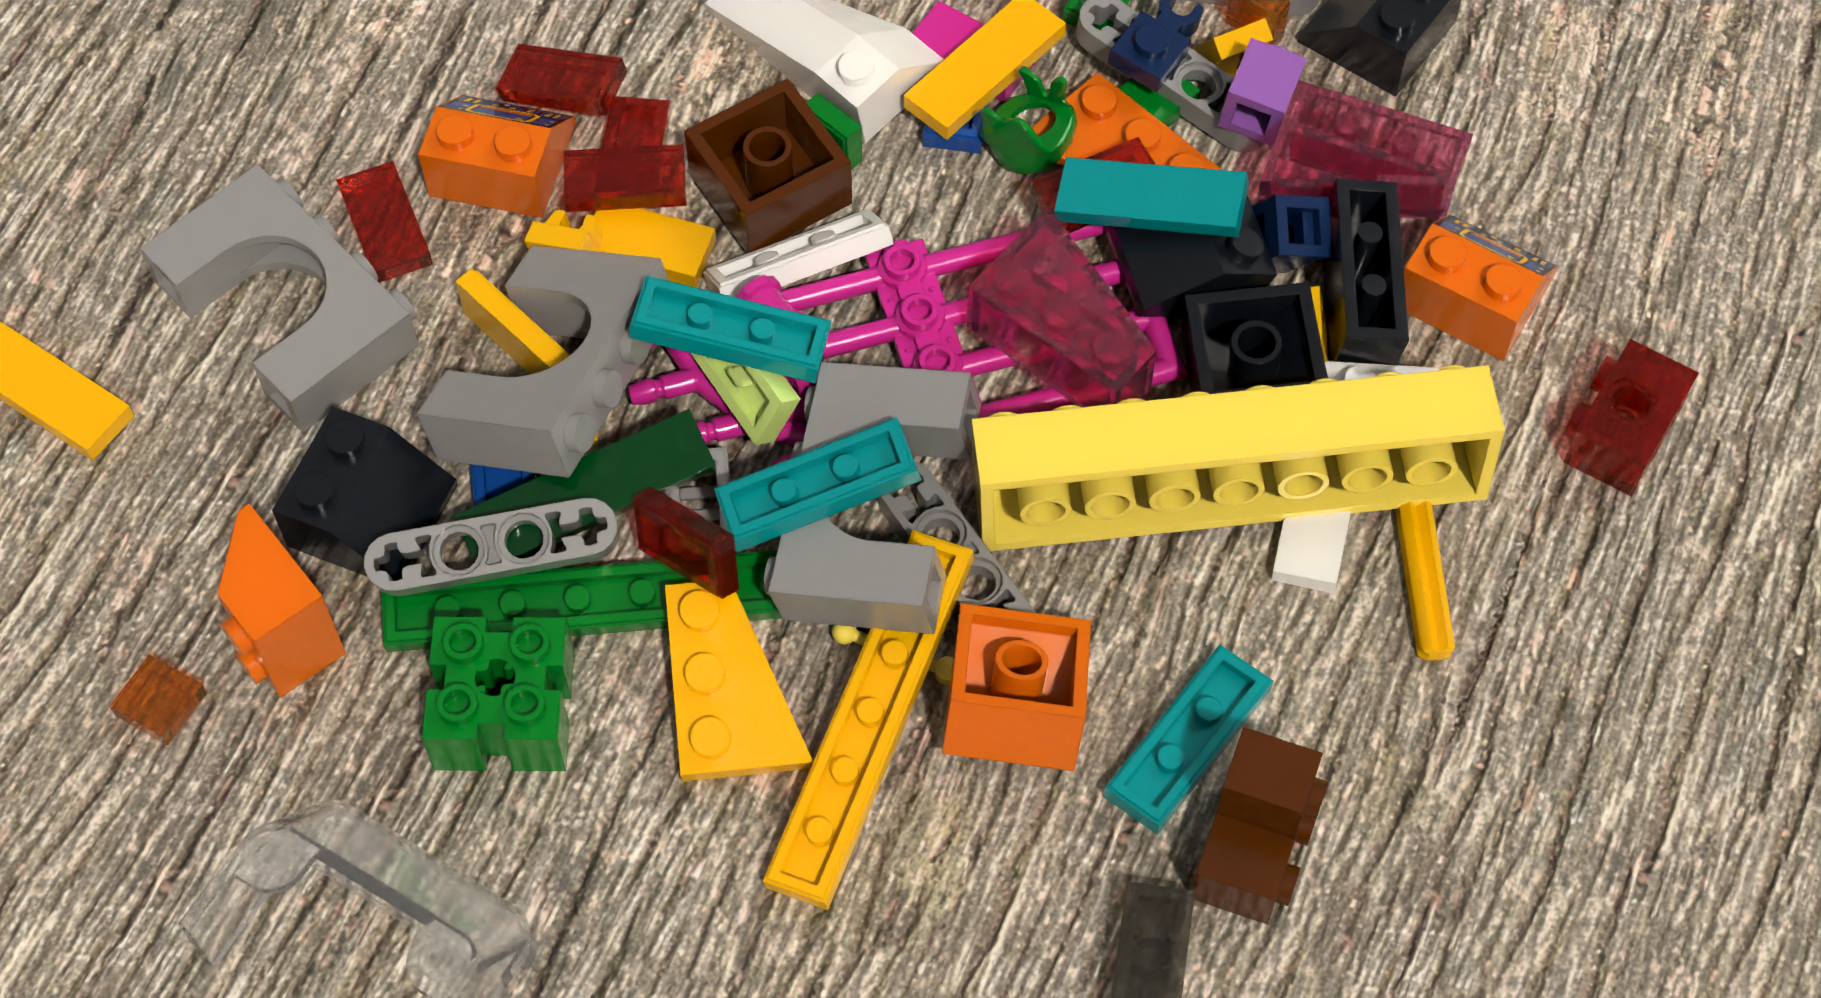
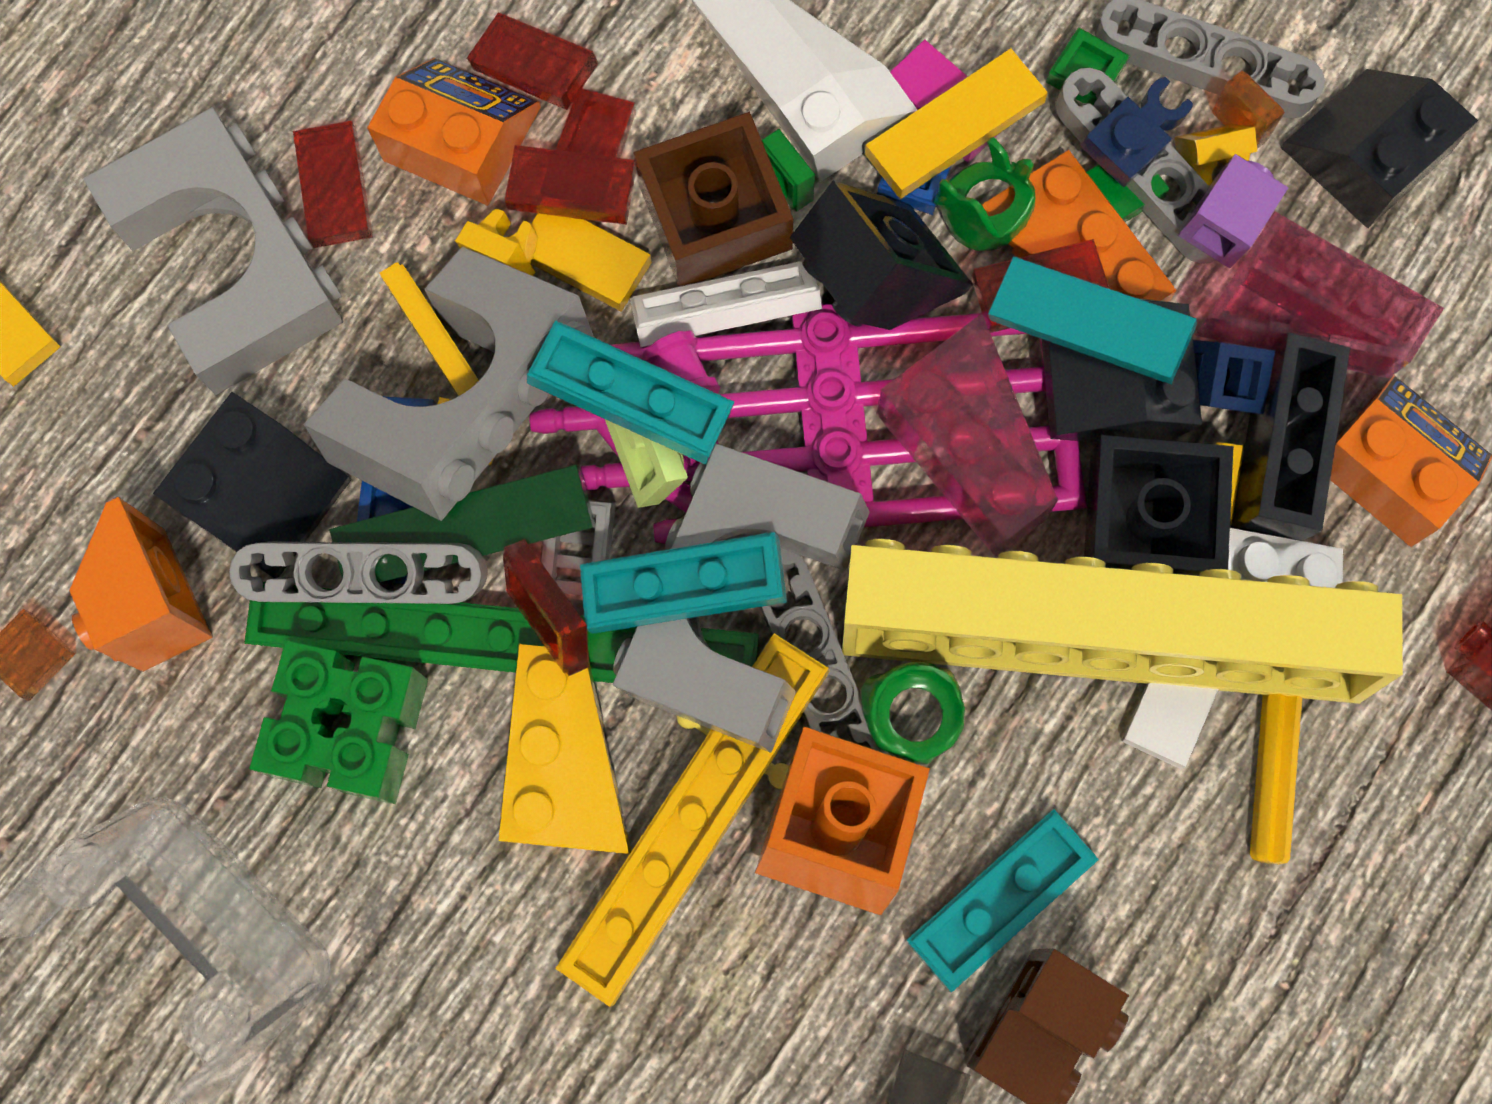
camera: 15 degrees right, 15 degrees up
(934, 189) = (876, 258): none -> black slope
(1054, 546) = (878, 696): none -> green piece

